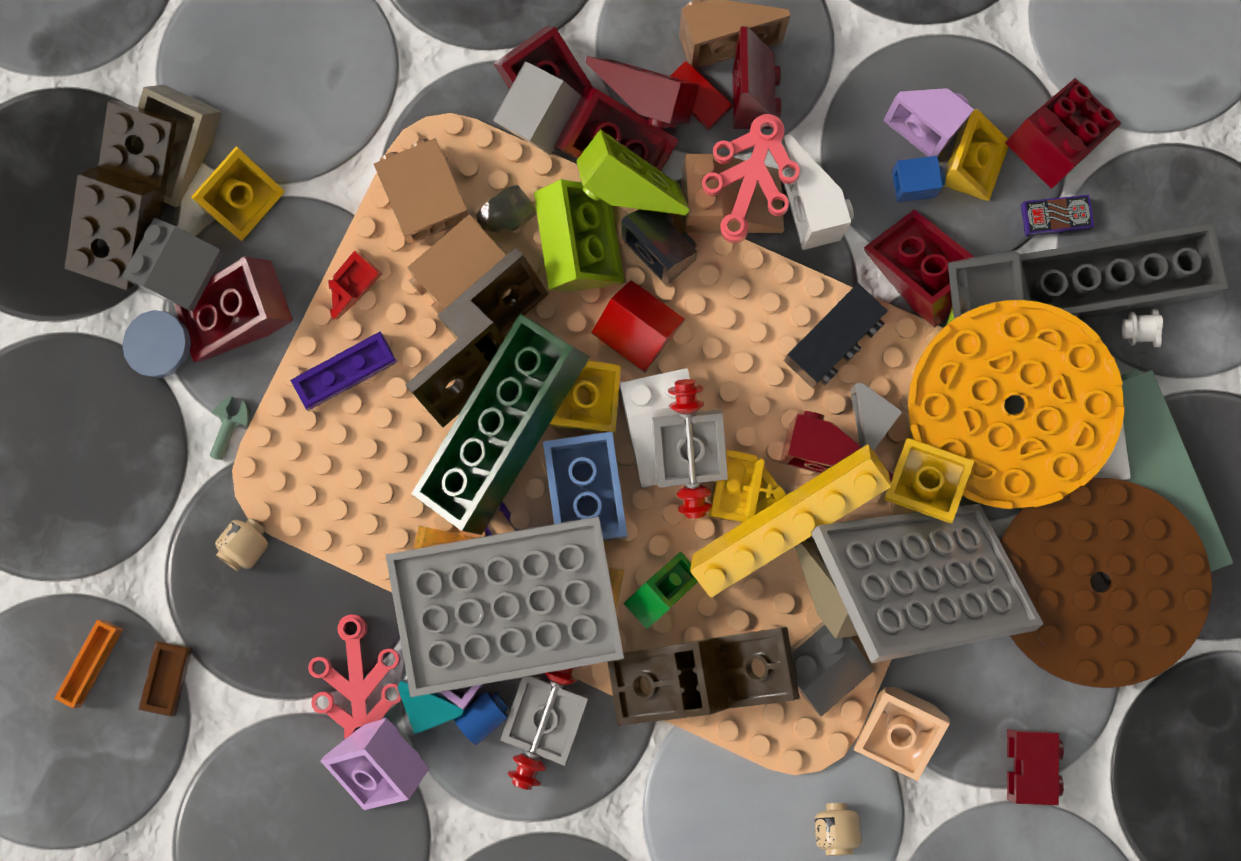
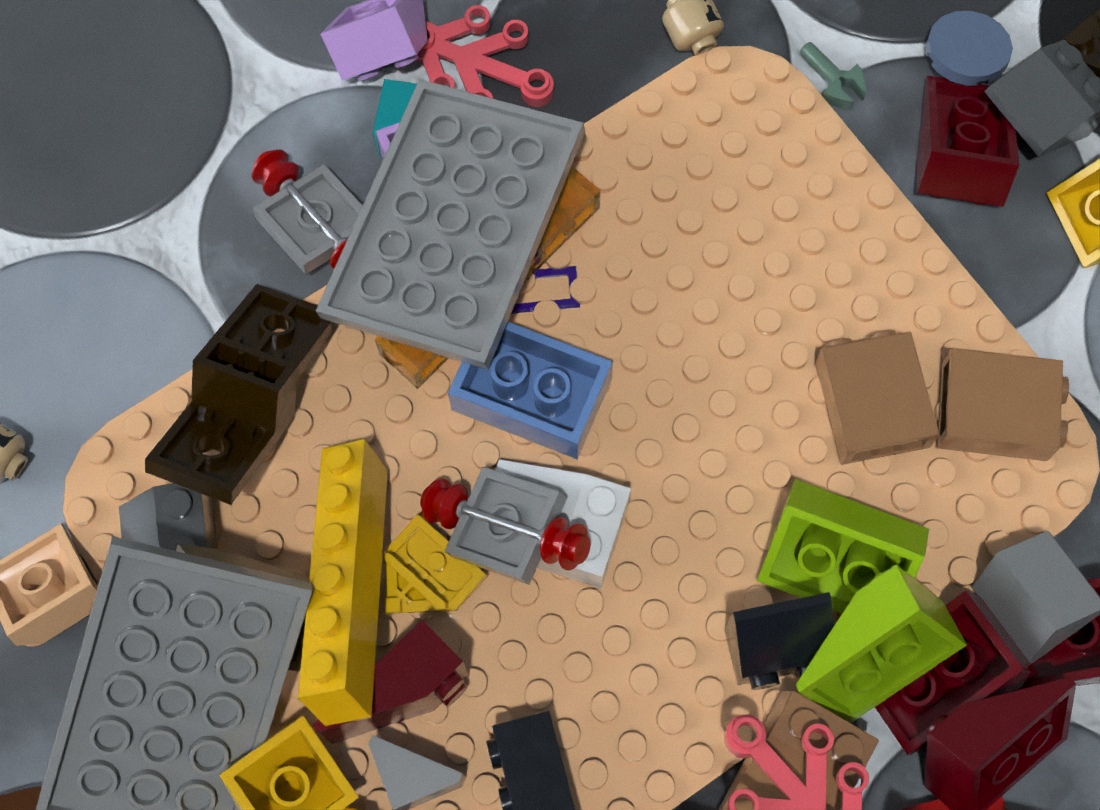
camera: 125 degrees right, 10 degrees down
(344, 371) = (827, 216): dark purple tile -> none
(351, 283) = (928, 274): red slope -> none
(478, 325) = (779, 360): dark brown bracket -> none
(482, 717) = (357, 158): blue brick -> none
(500, 425) = (661, 329): dark green brick -> none
(506, 210) = (923, 487): clear smoke rock -> none
(591, 400) = (644, 447): yellow slope -> none
(637, 325) = (695, 565): red slope -> none
(662, 590) = (367, 407): green slope -> none

